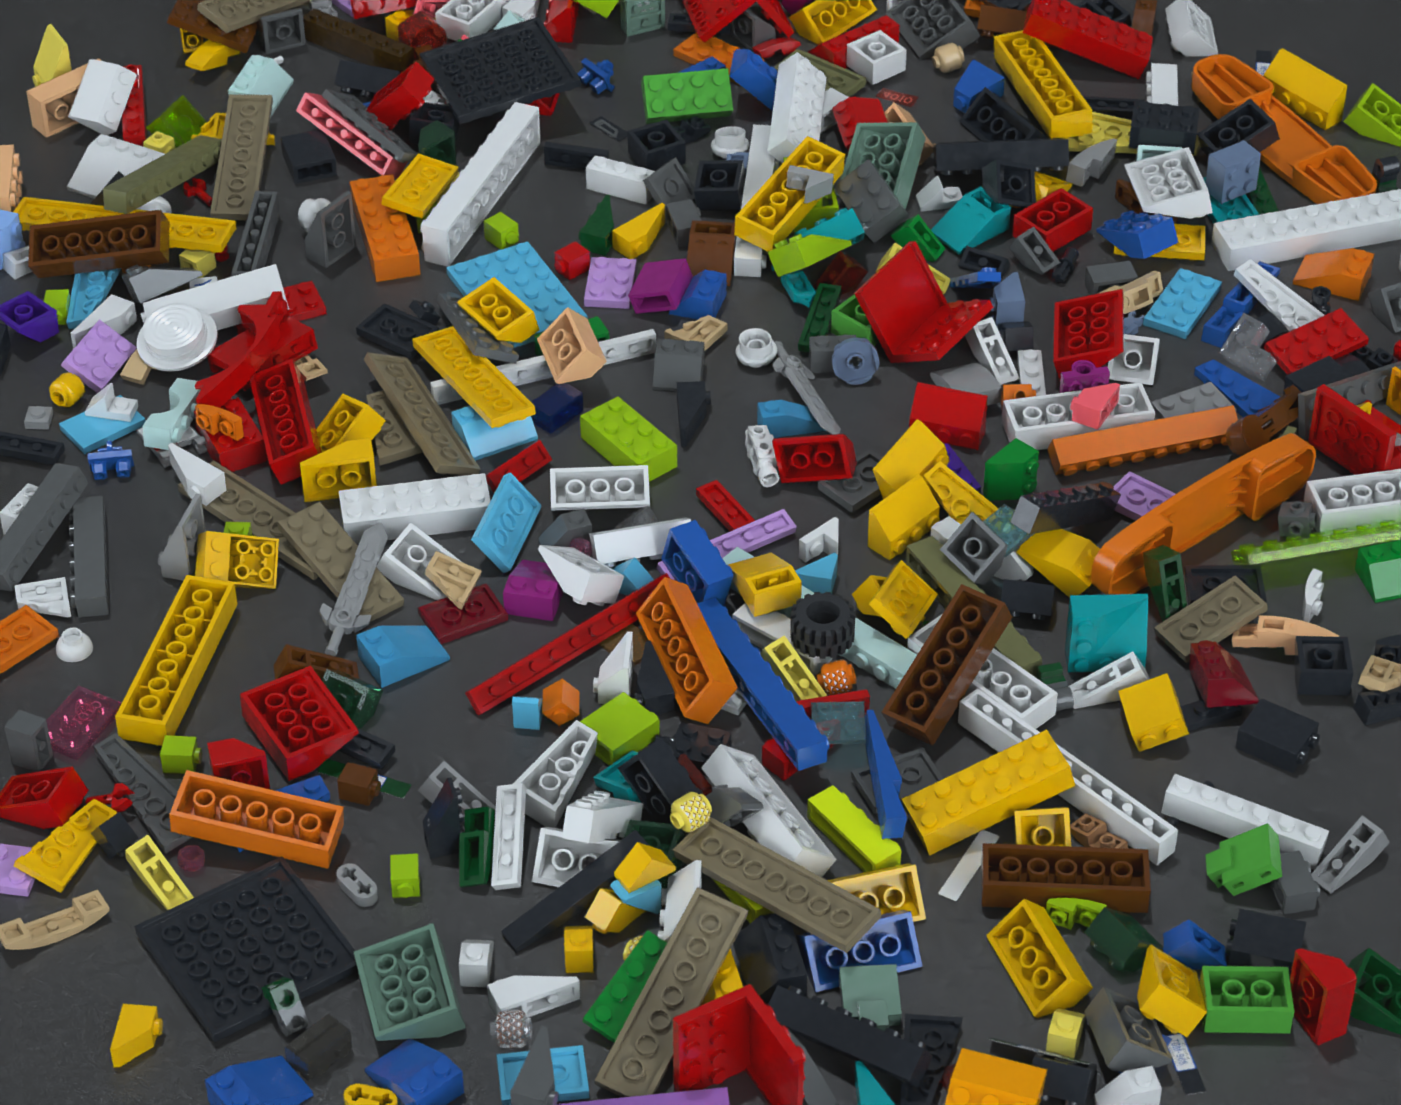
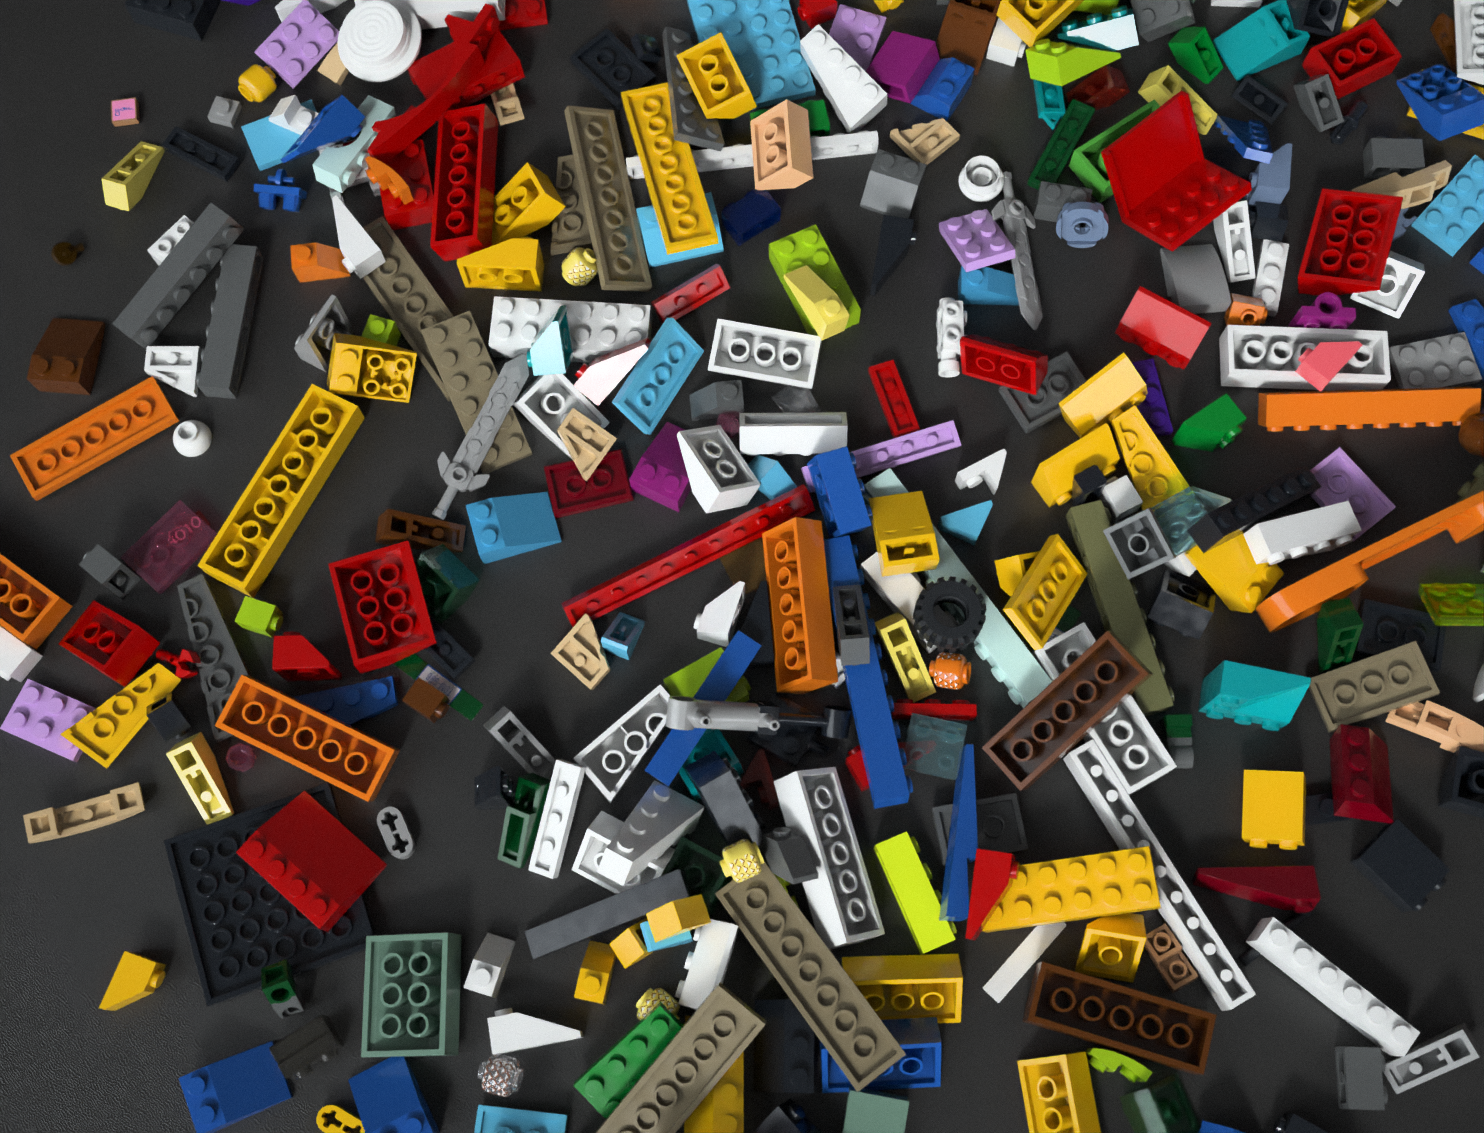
camera: 15 degrees right, 30 degrees up
(152, 398) = (334, 123): none -> blue slope
(160, 502) = (317, 262): none -> orange slope
(283, 909) = (312, 860): none -> red slope
(405, 875) = (444, 838): lime brick -> none
(406, 502) = (552, 347): none -> slope
(411, 463) = (579, 267): none -> light yellow head
(458, 524) = (607, 370): none -> slope
(495, 726) = (583, 653): none -> tan wing
(560, 702) = (655, 642): orange brick -> none
(611, 300) = (843, 81): none -> white wedge
(619, 731) = (715, 687): none -> blue slope
(640, 439) = (818, 302): none -> light yellow slope
(673, 723) = (757, 716): none -> light grey piece
(739, 645) = (851, 625): none -> dark grey slope
(764, 386) = (976, 240): none -> lavender plate
(917, 523) = (1087, 486): none -> black slope
(919, 792) = (990, 884): none -> red slope
(1105, 517) = (1303, 533): none -> white wedge
(1106, 682) = (1238, 749): white slope -> none
(1159, 767) = (1273, 886): none -> dark red slope
(1246, 860) = (1319, 1046): bright green piece -> none

